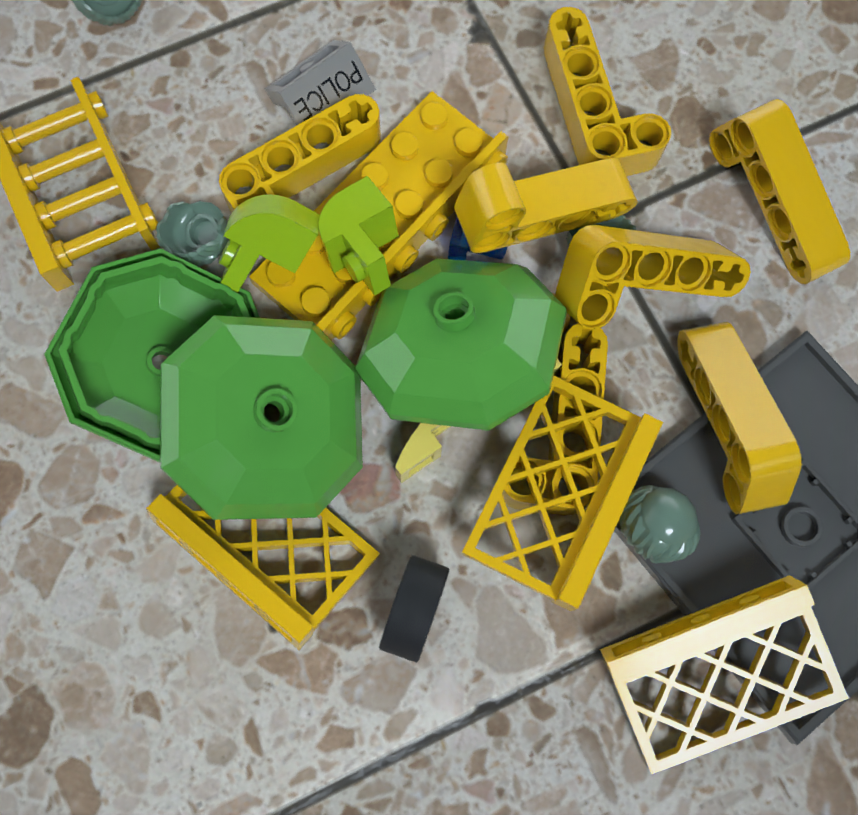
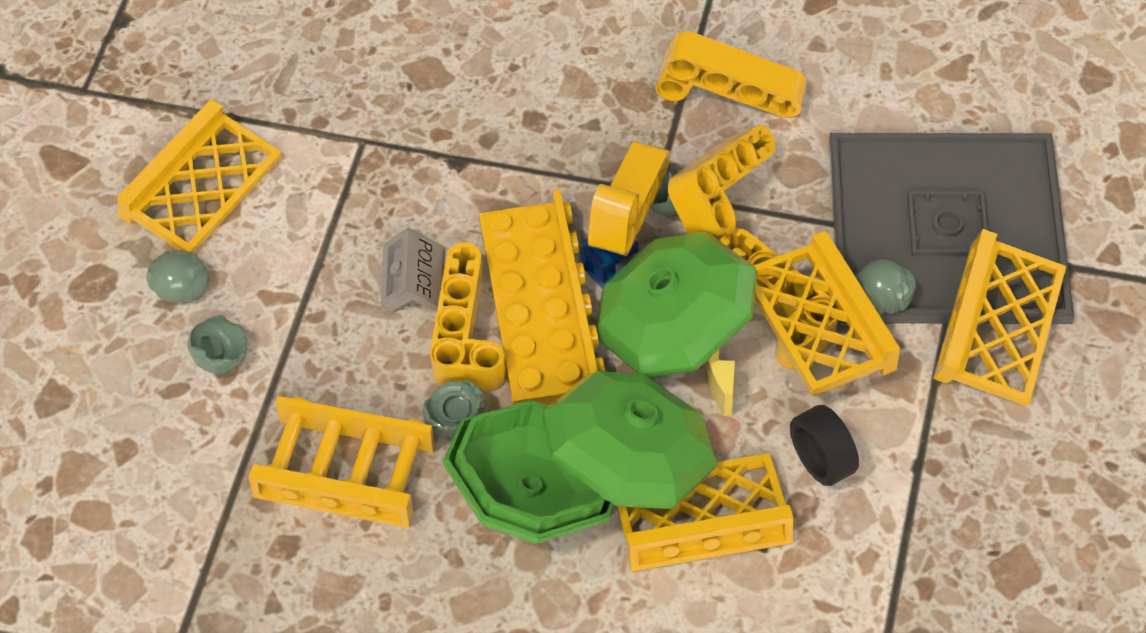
camera: 45 degrees left, 20 degrees down
(268, 228) = (503, 353): lime brick -> none
(354, 228) = (555, 309): lime brick -> none
(593, 94) = (571, 134): yellow beam -> none
(748, 423) = (855, 194): yellow beam -> none

